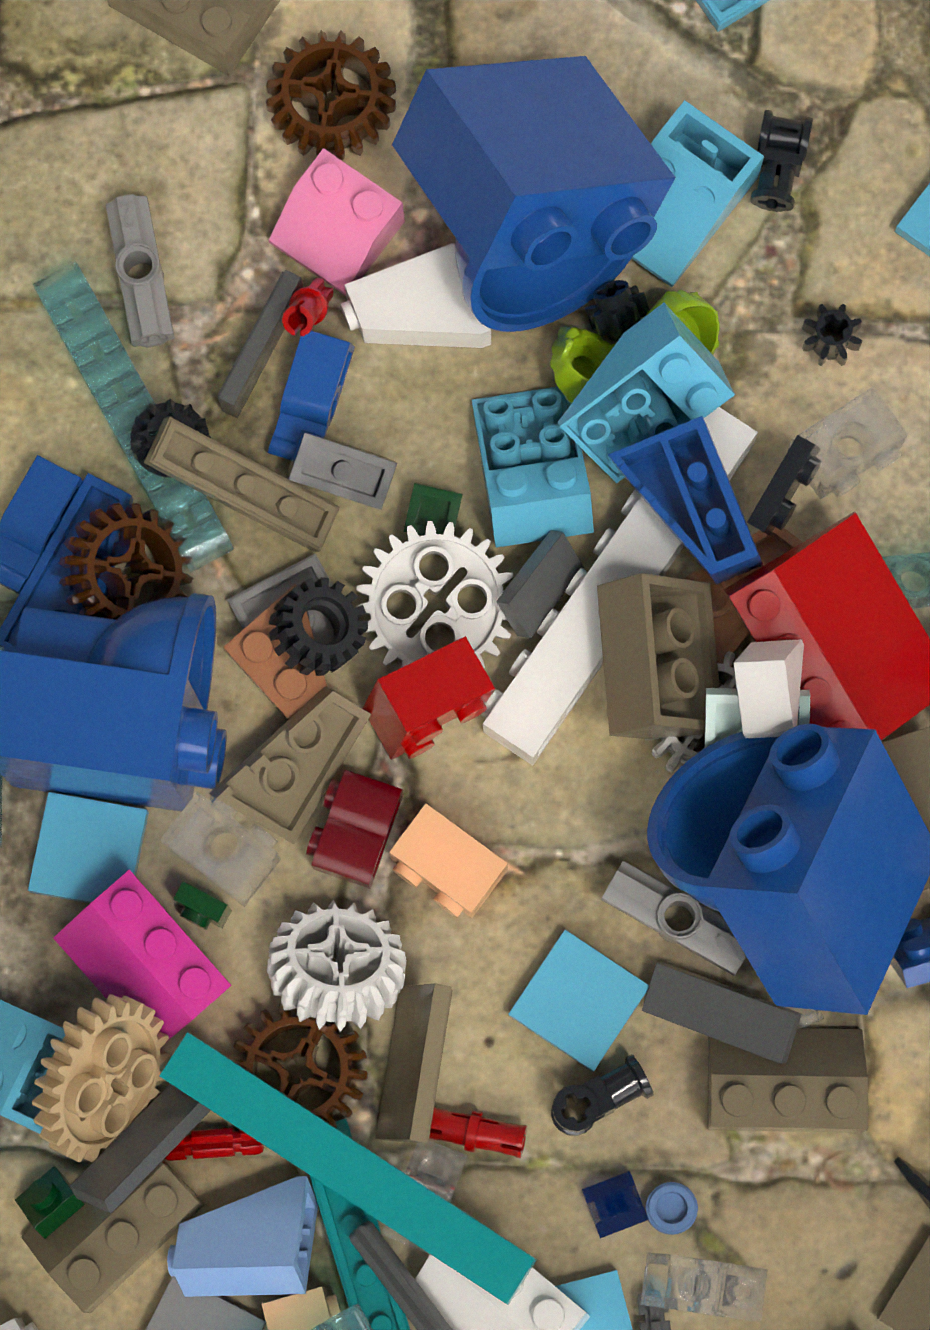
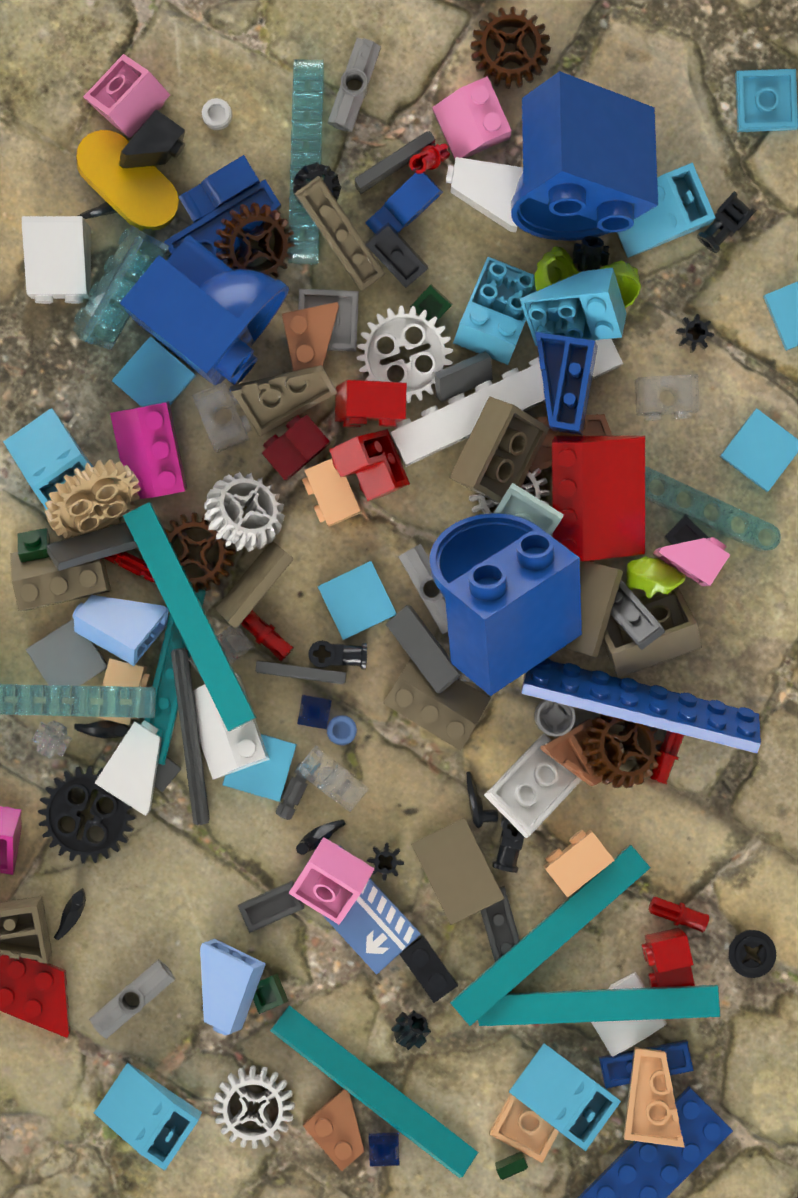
camera: 25 degrees right, 10 degrees up
(200, 907) = (193, 441): dark green plate -> none
(300, 645) = (351, 327): black tyre -> none
(482, 780) = (374, 463): none -> brick
(561, 1155) = (301, 672): none -> dark grey tile
(769, 687) = (542, 502): white slope -> none
(775, 504) = (607, 407): black plate -> none

